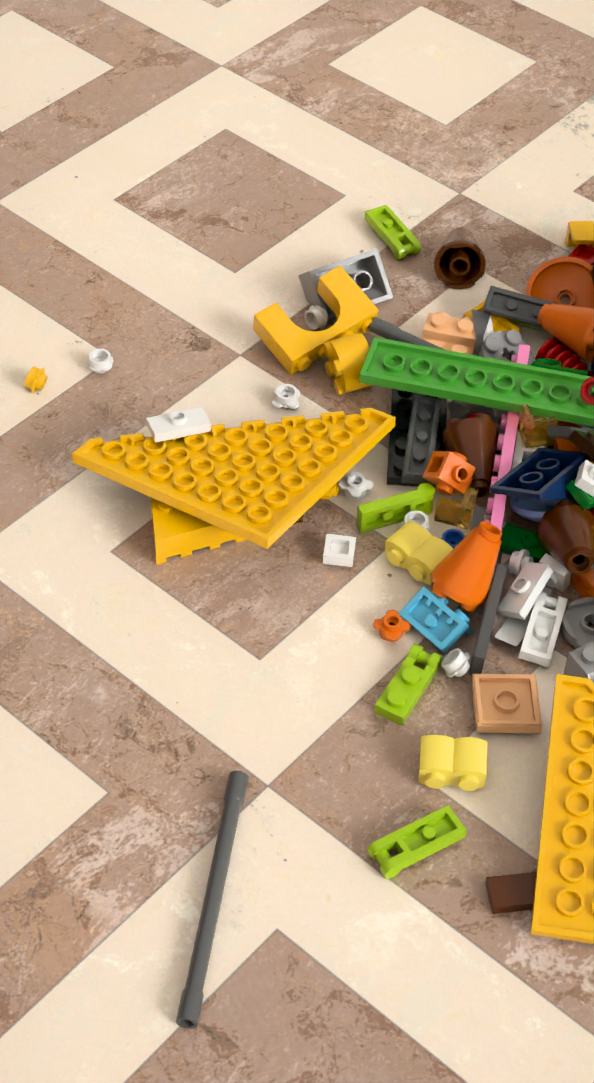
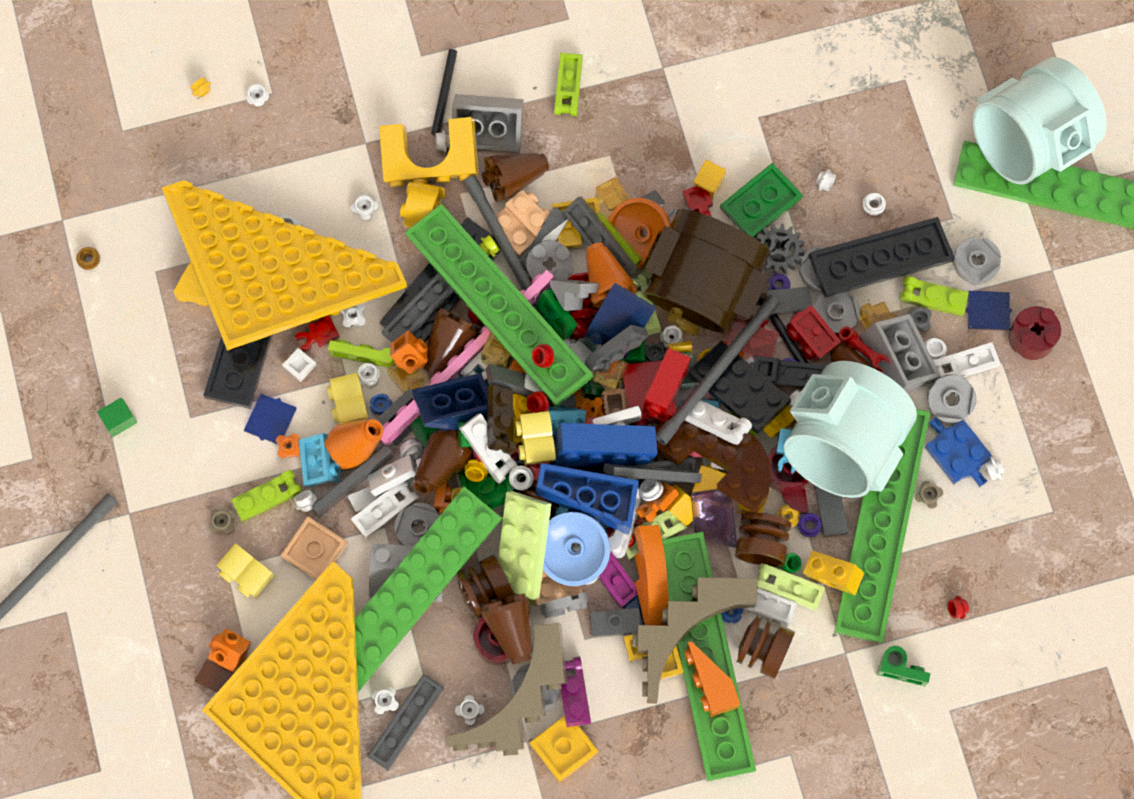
camera: 35 degrees right, 25 degrees up
(26, 570) = (83, 254): none -> pearl gold plate
(178, 424) = (248, 204): white plate -> none
(180, 693) = (117, 417): none -> green panel
(273, 581) = (237, 373): none -> black plate
(282, 285) = (444, 91): none -> black bar
(334, 515) = (320, 333): none -> red plate
(348, 616) = (270, 418): none -> clear blue piece
(385, 725) = (220, 515): none -> dark tan plate
(406, 305) = (512, 173): none -> reddish brown cone
(417, 841) = (184, 610): lime plate -> none
(460, 260) = (593, 144): reddish brown cone -> none
(507, 846) = (228, 649): none -> orange brick
(512, 280) = (611, 193): none -> clear yellow panel
(556, 347) = (571, 292): none -> light grey slope

